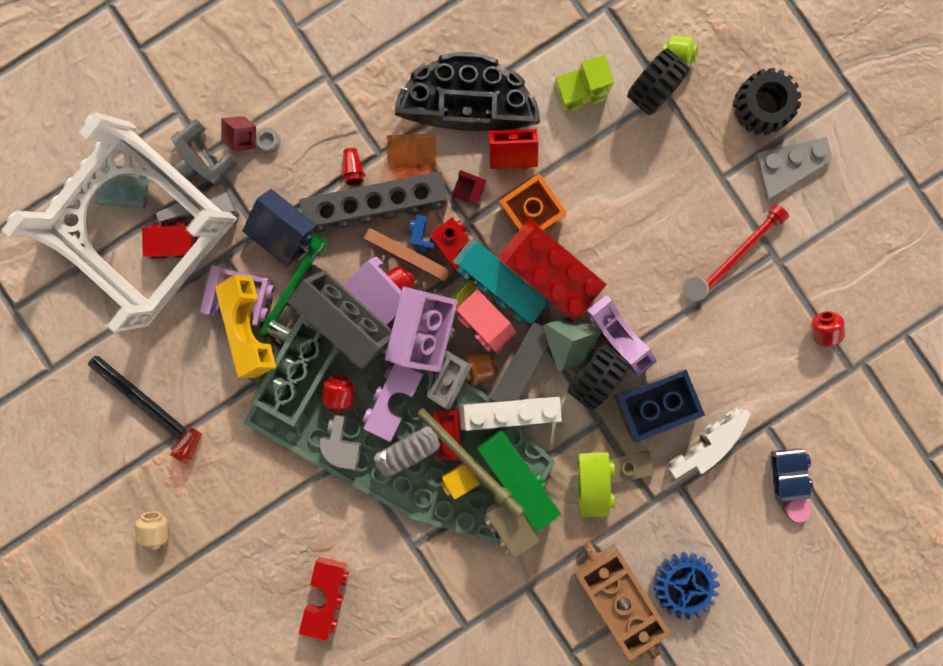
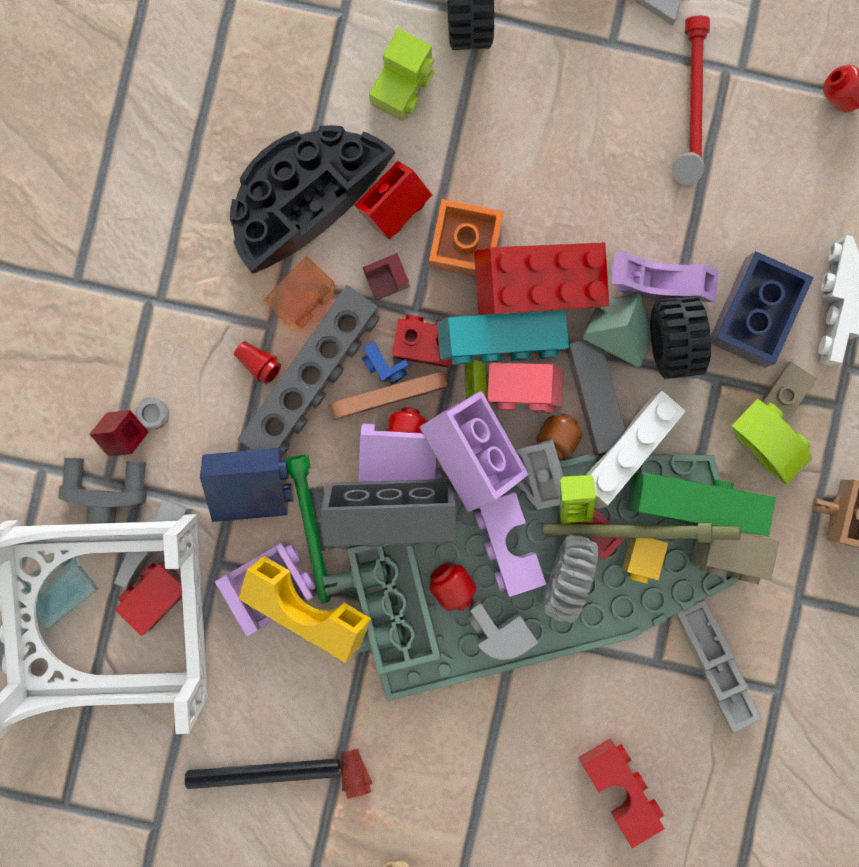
camera: 40 degrees left, 0 degrees up
(444, 581) = (718, 666): none -> light grey slope
(451, 410) = (577, 499): none -> lime slope

